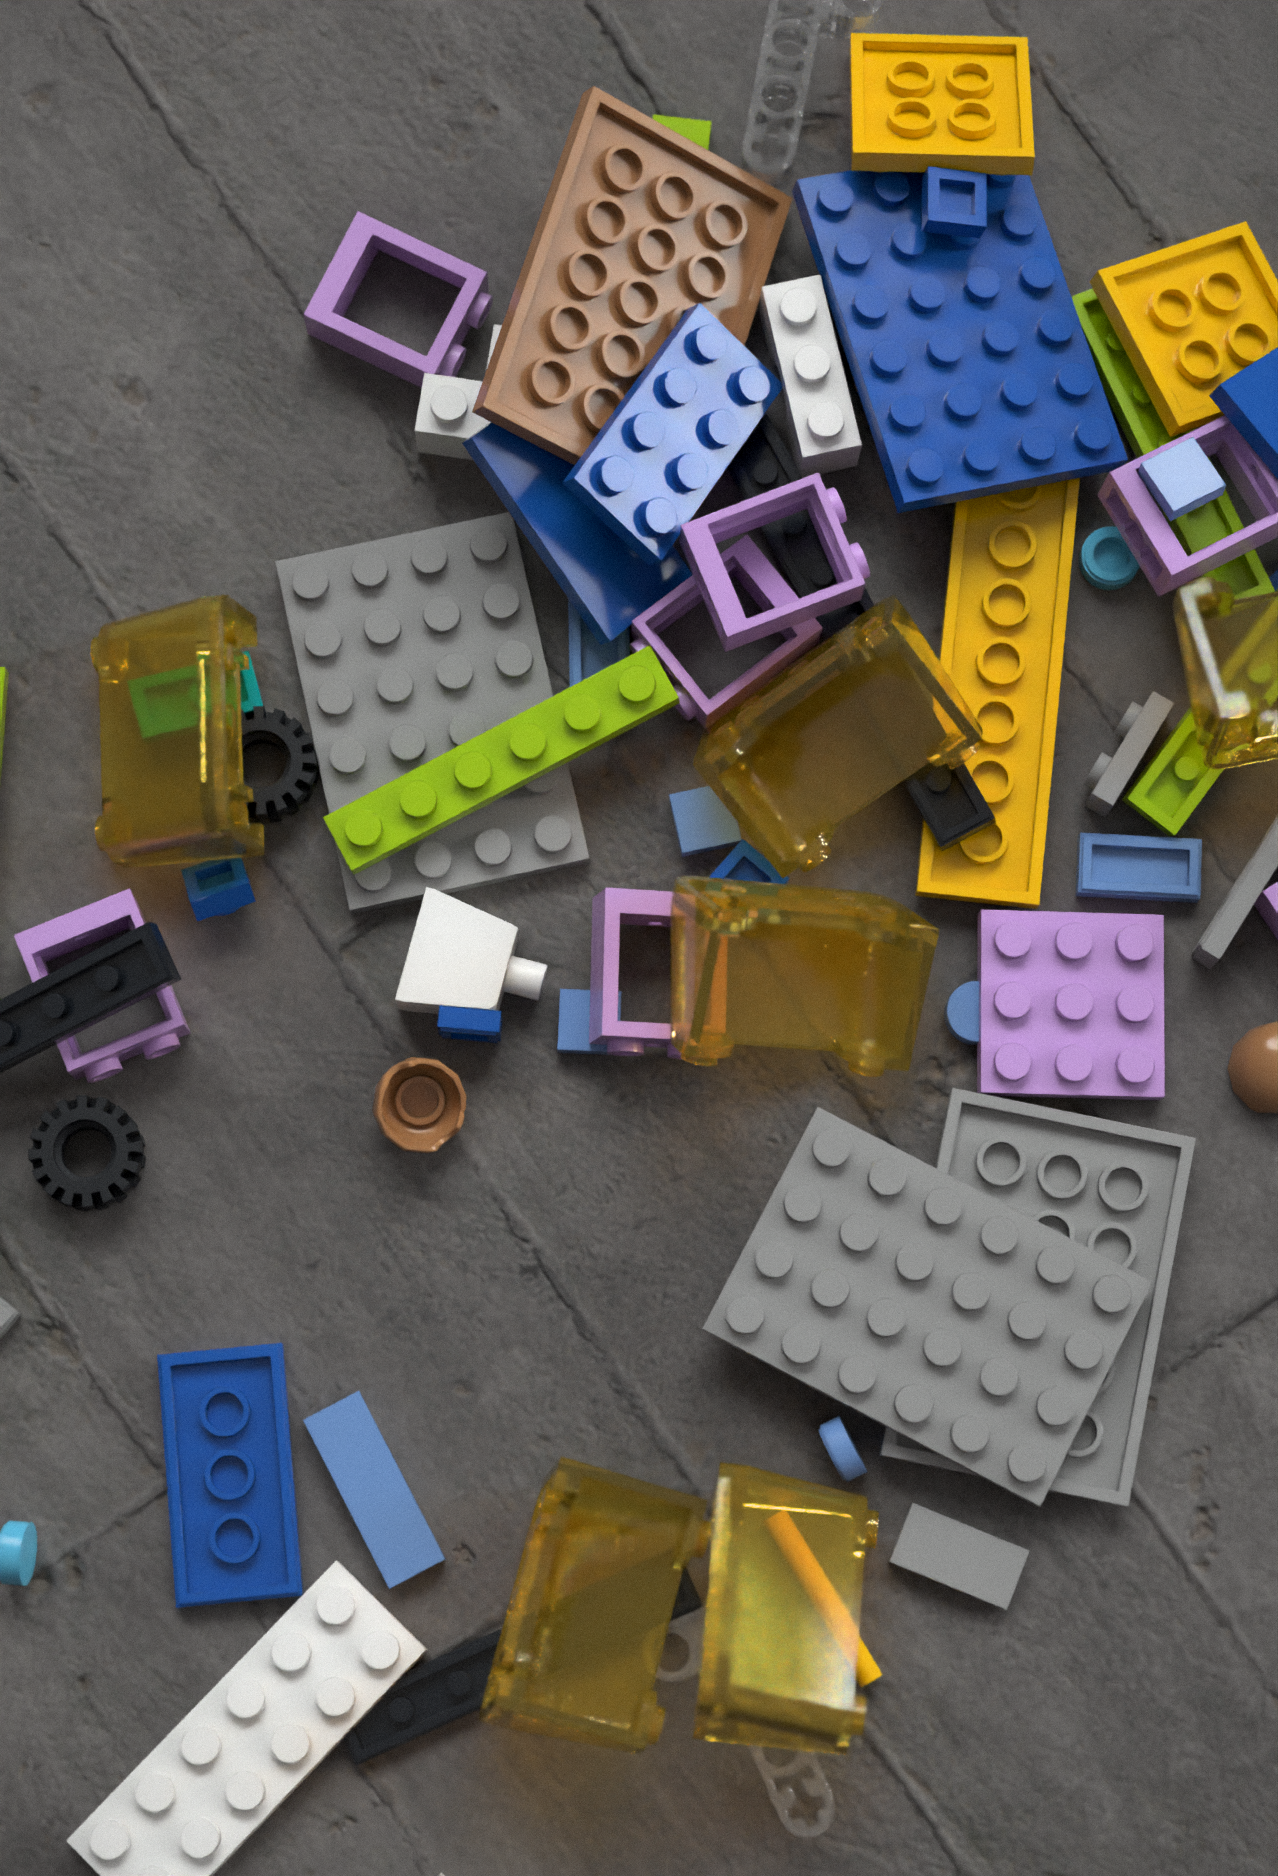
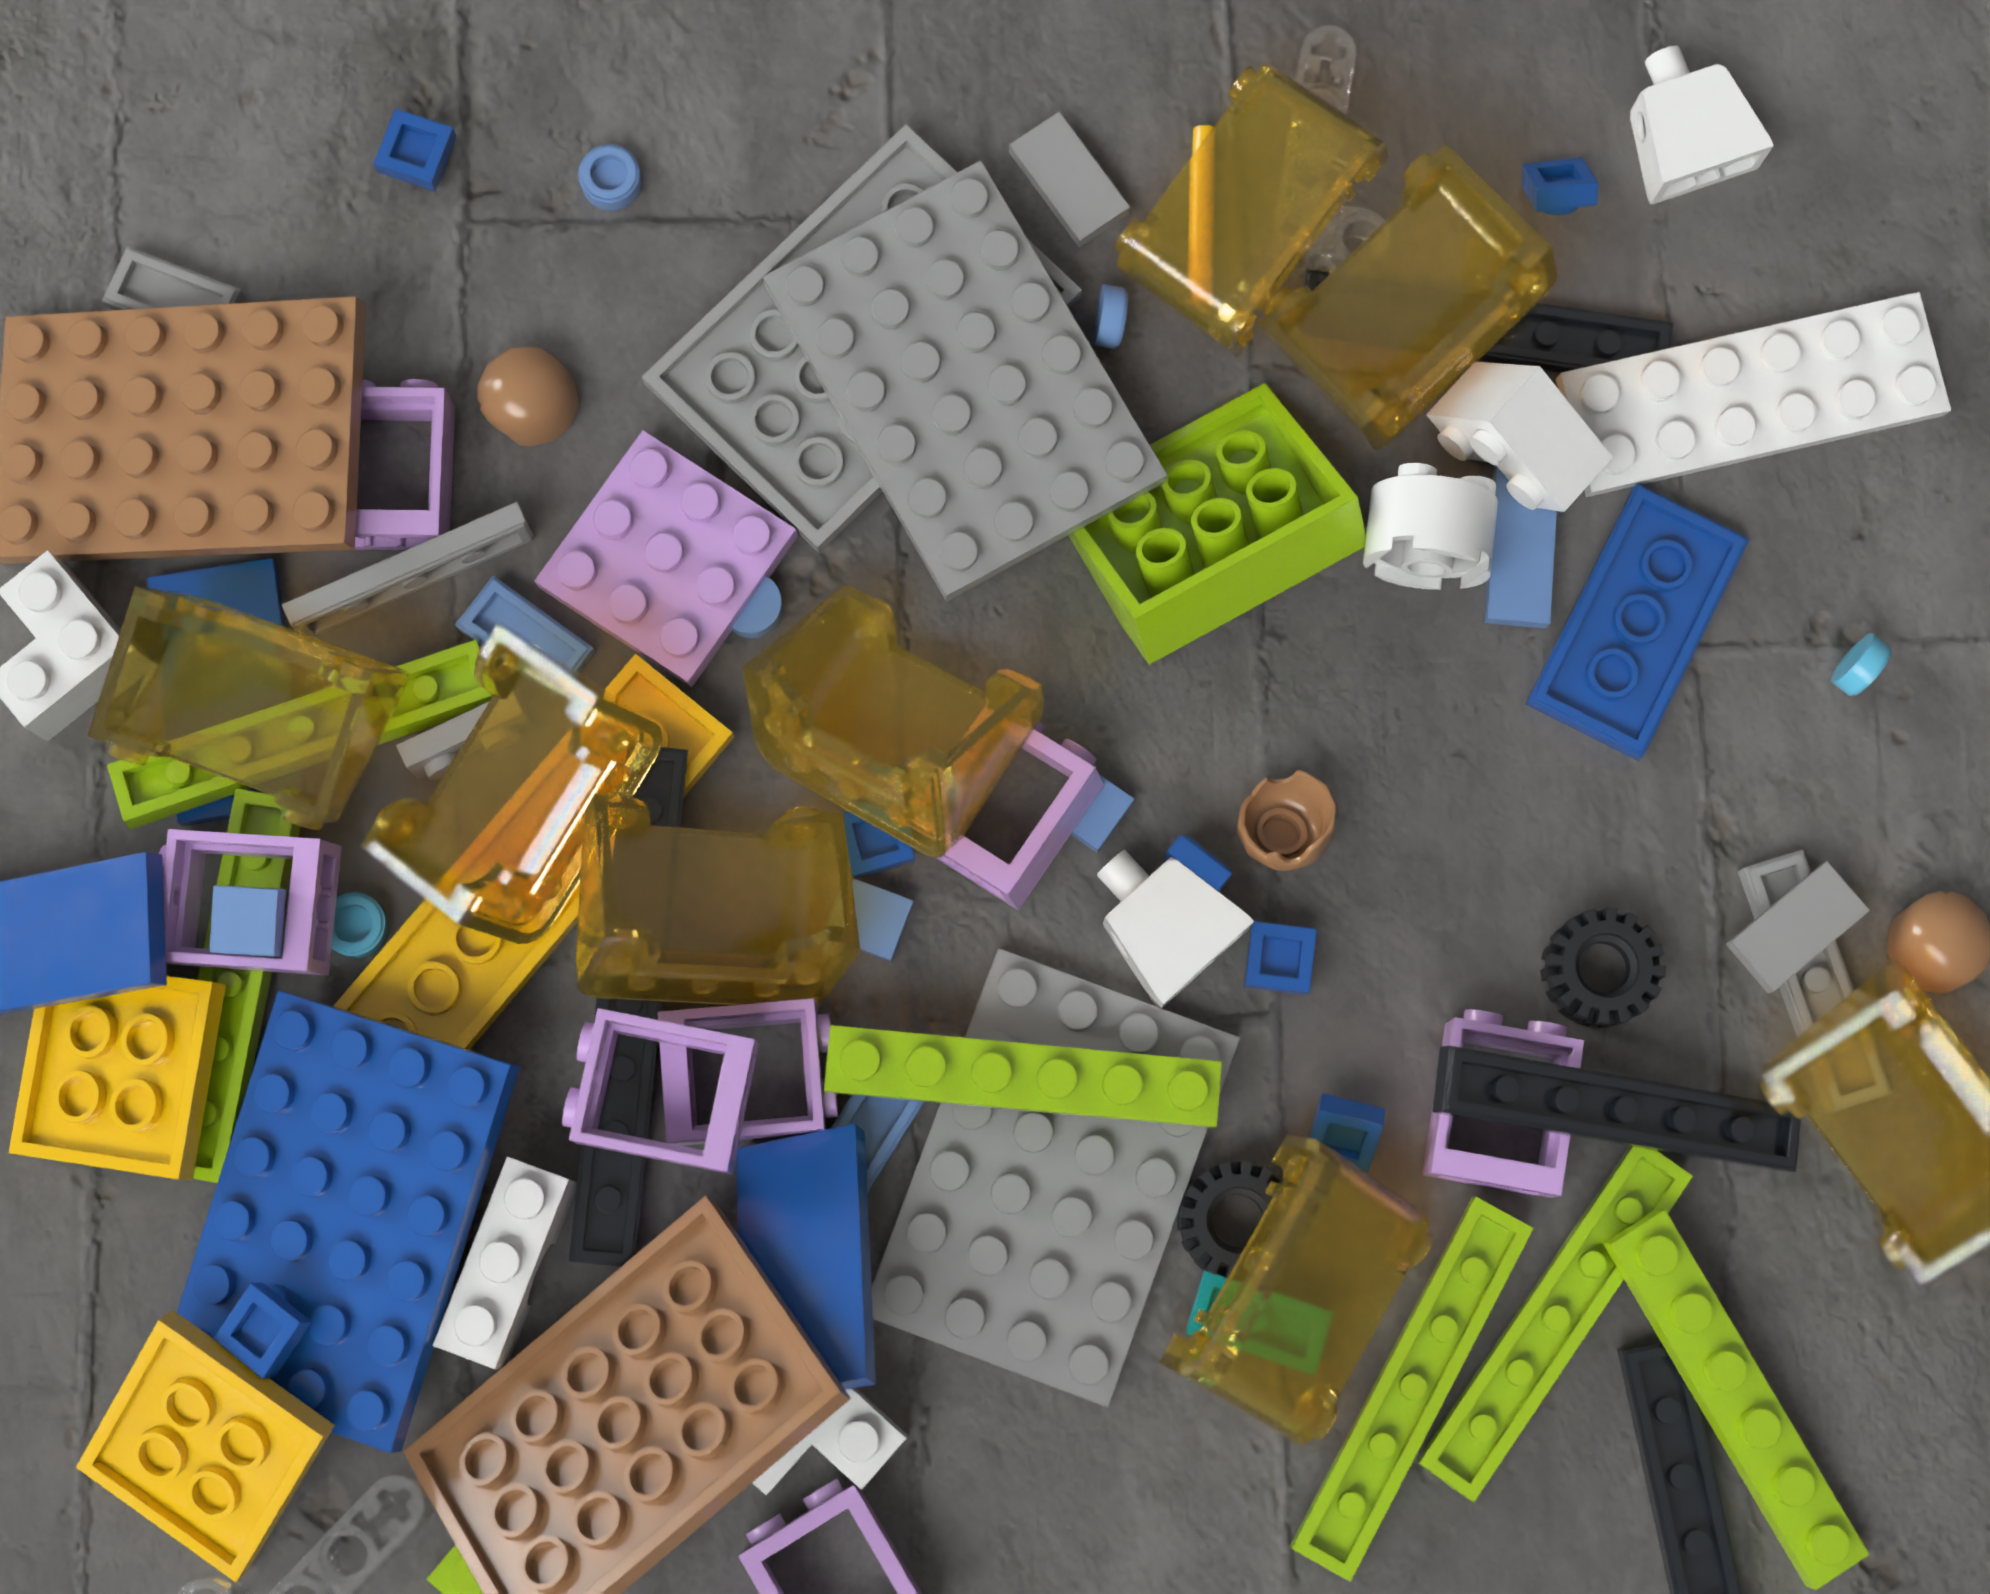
camera: 145 degrees left, 0 degrees up
(45, 725) = (1411, 1388): none -> lime plate
(356, 993) = (1280, 958): none -> blue plate
(433, 1559) = (1525, 428): none -> white brick
(450, 1424) = (1431, 528): none -> white brick
(530, 1826) = (1559, 185): none -> blue plate
(624, 1322) = (1232, 526): none -> lime slope
(673, 434) = (672, 1273): plate -> none
(1043, 684) = (508, 816): none -> clear yellow windscreen

